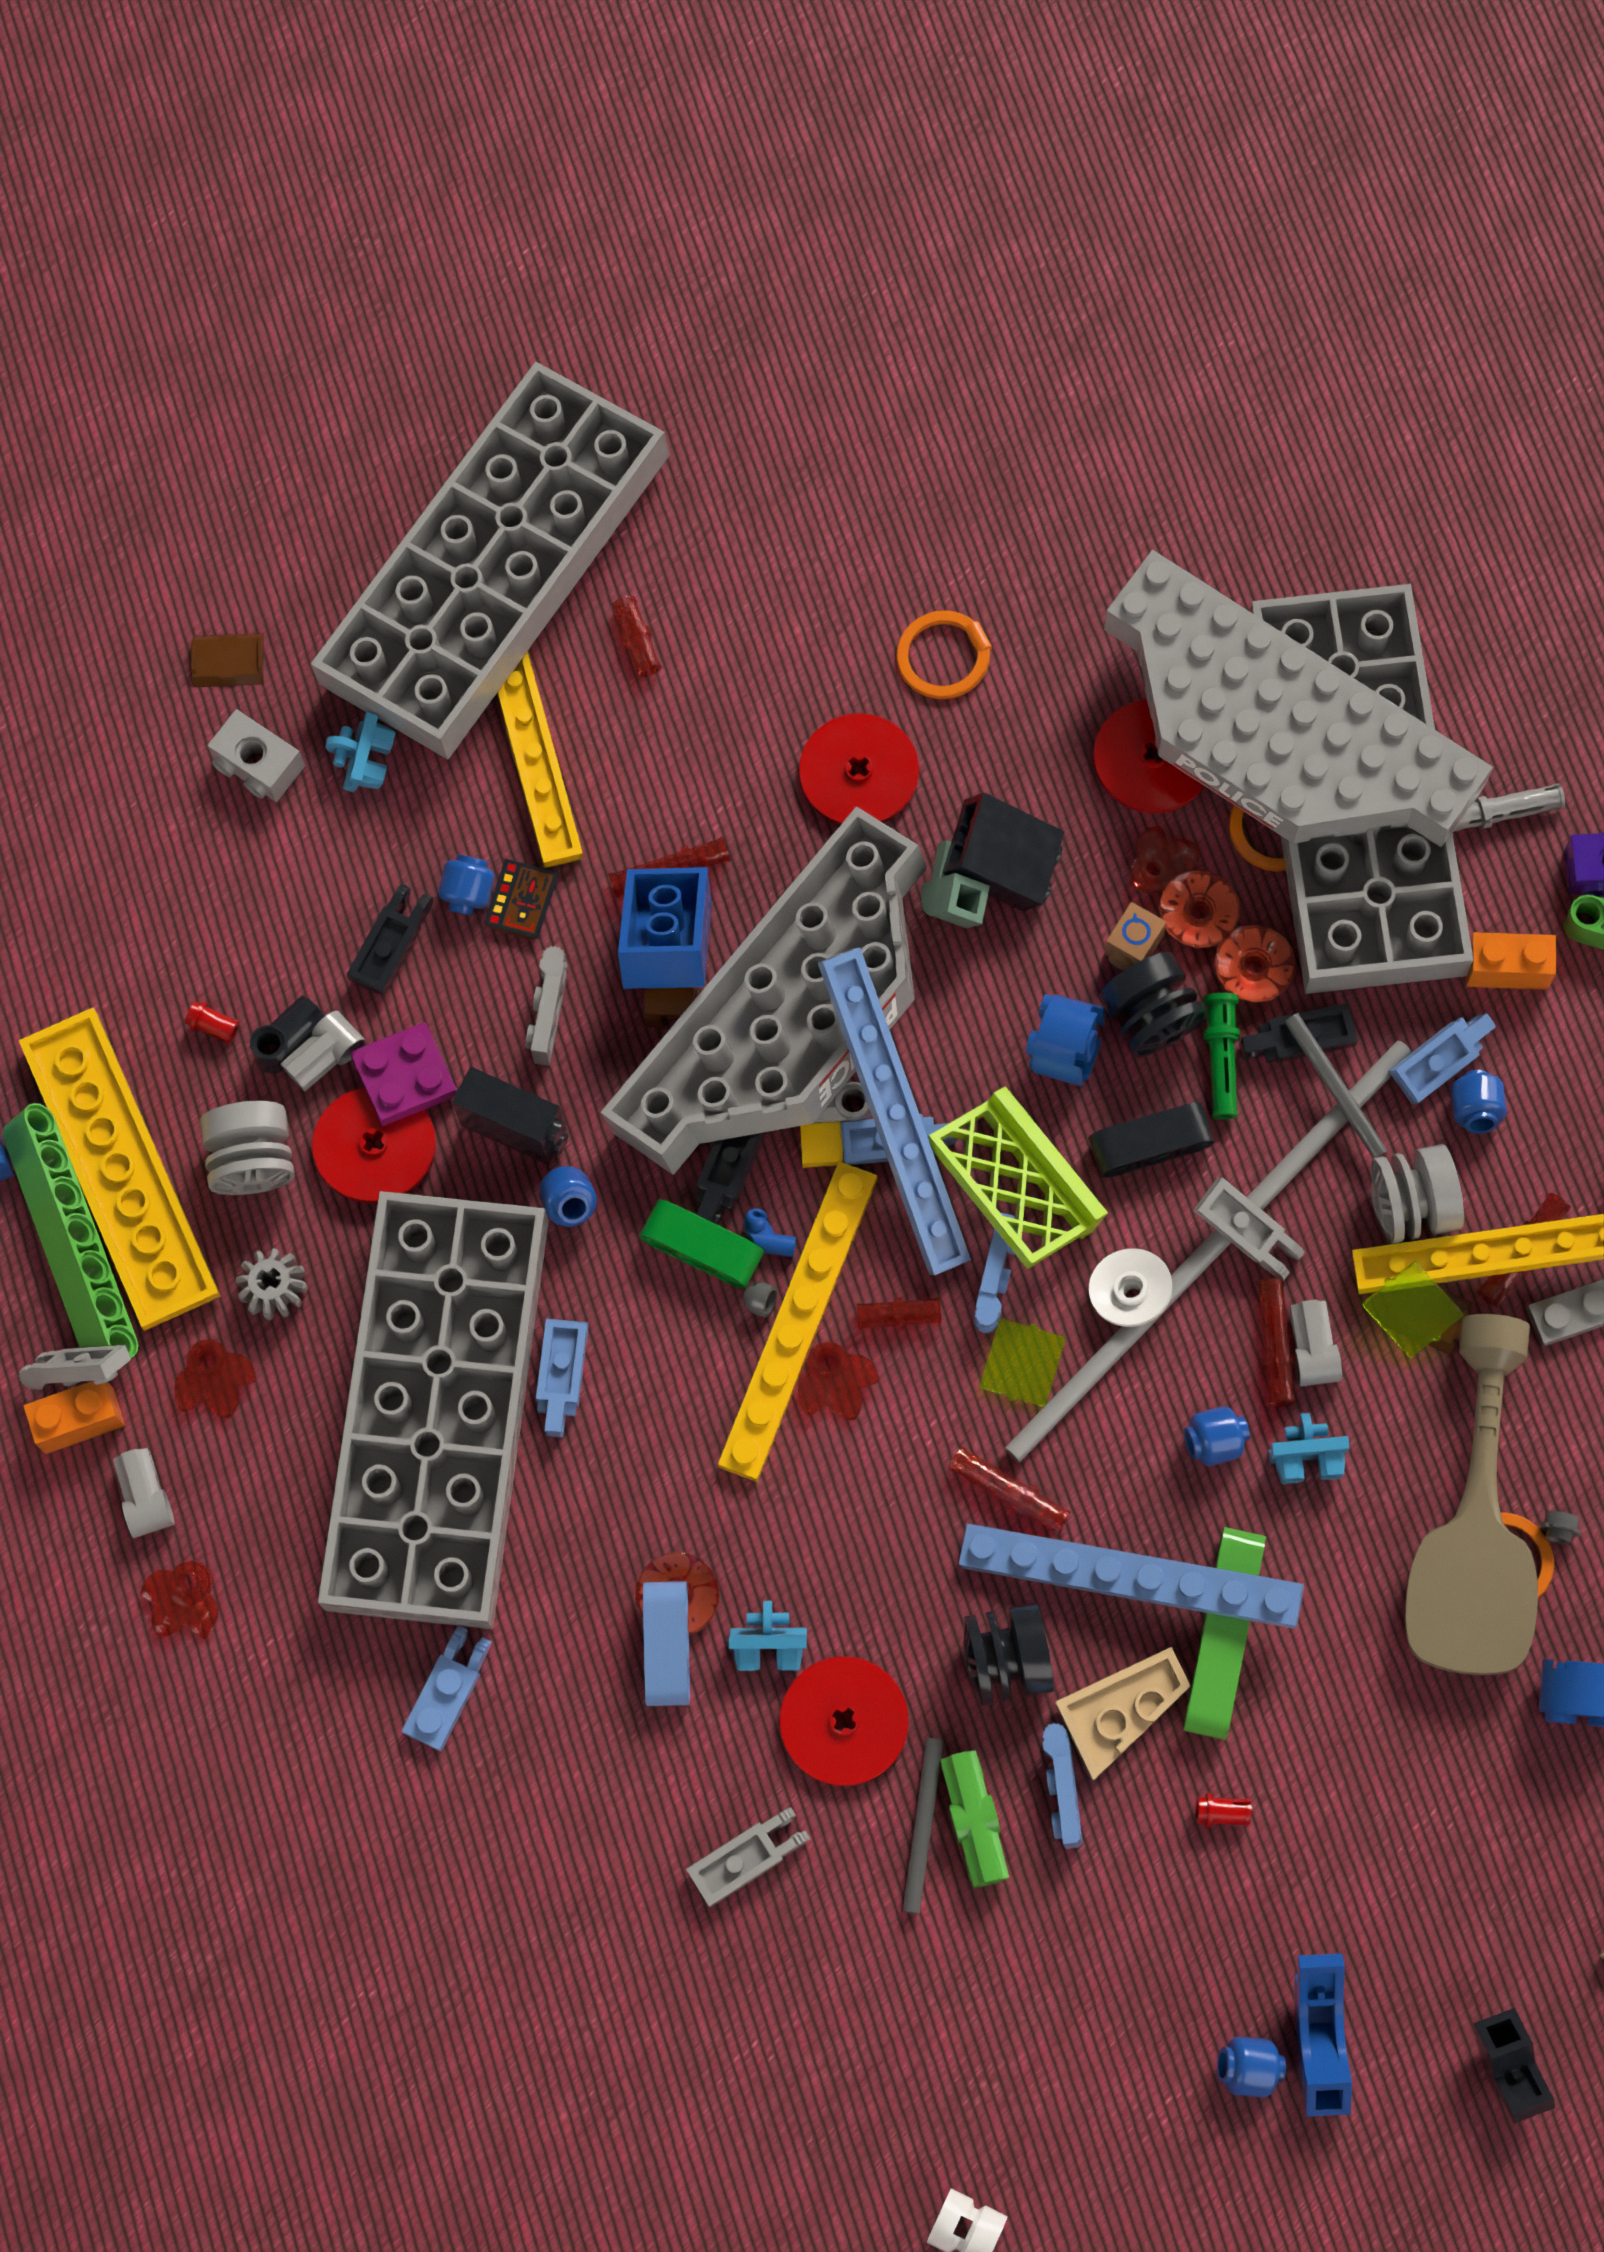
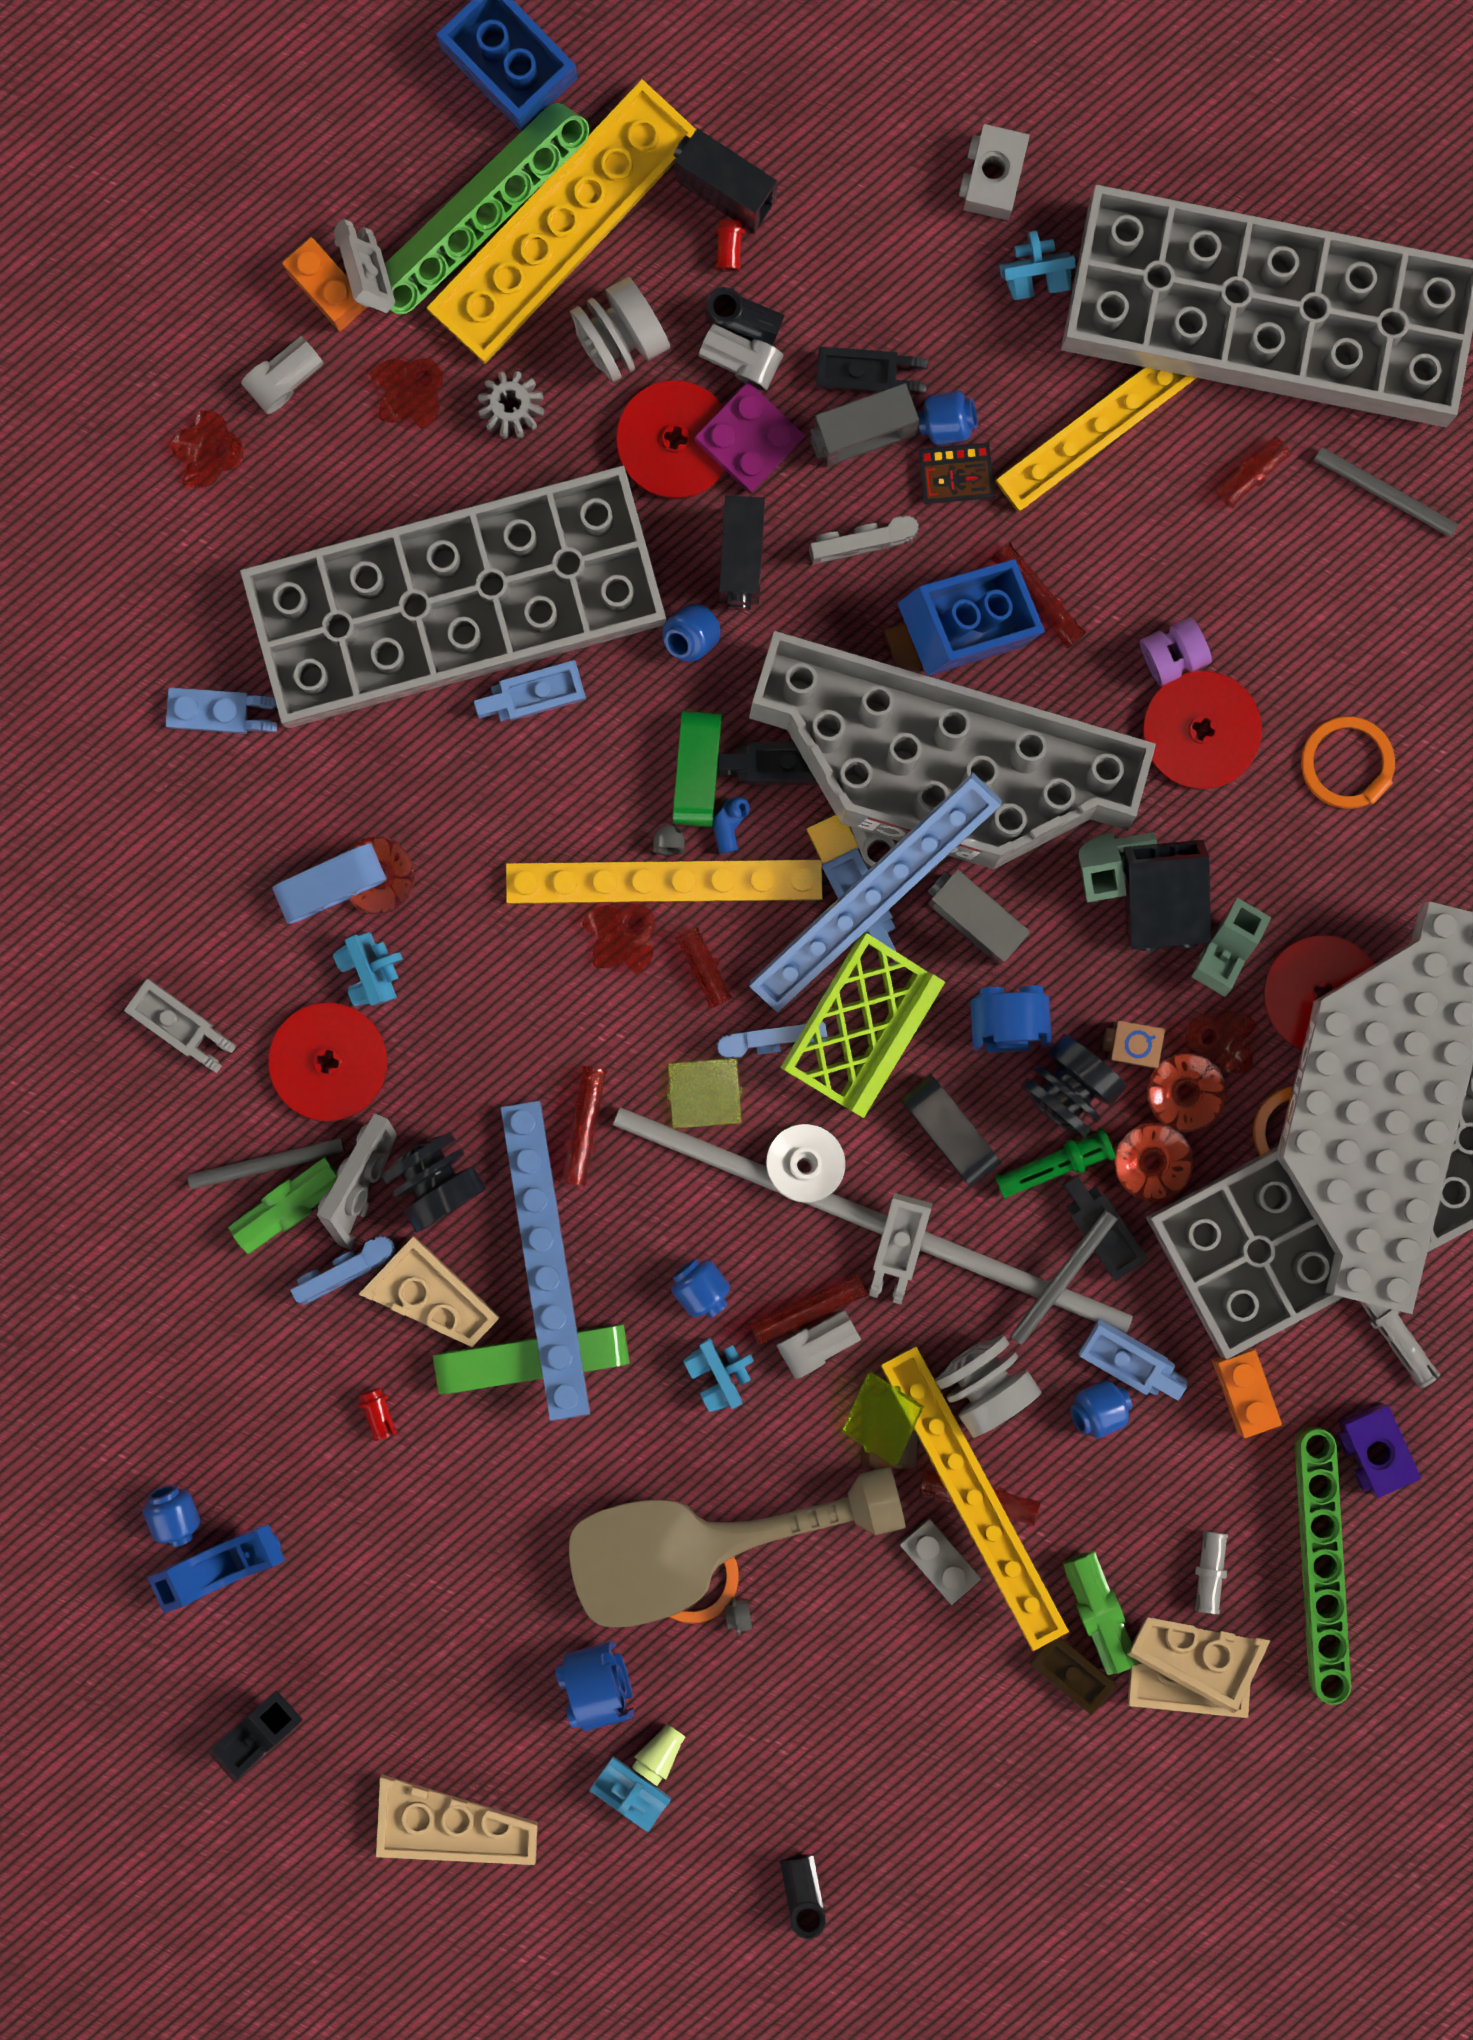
camera: 65 degrees right, 15 degrees up
(149, 997) = (724, 179): none -> black brick
(227, 660) = (1083, 103): reddish brown piece -> none
(440, 958) = (864, 425): none -> dark grey window
(705, 530) = (1385, 492): none -> dark grey bar
(775, 762) = (1187, 644): none -> medium lavender wheel
(954, 1031) = (977, 916): none -> dark grey window
(966, 1723) = (350, 1191): none -> light grey wing
(1069, 807) = (1230, 946): none -> sand green brick

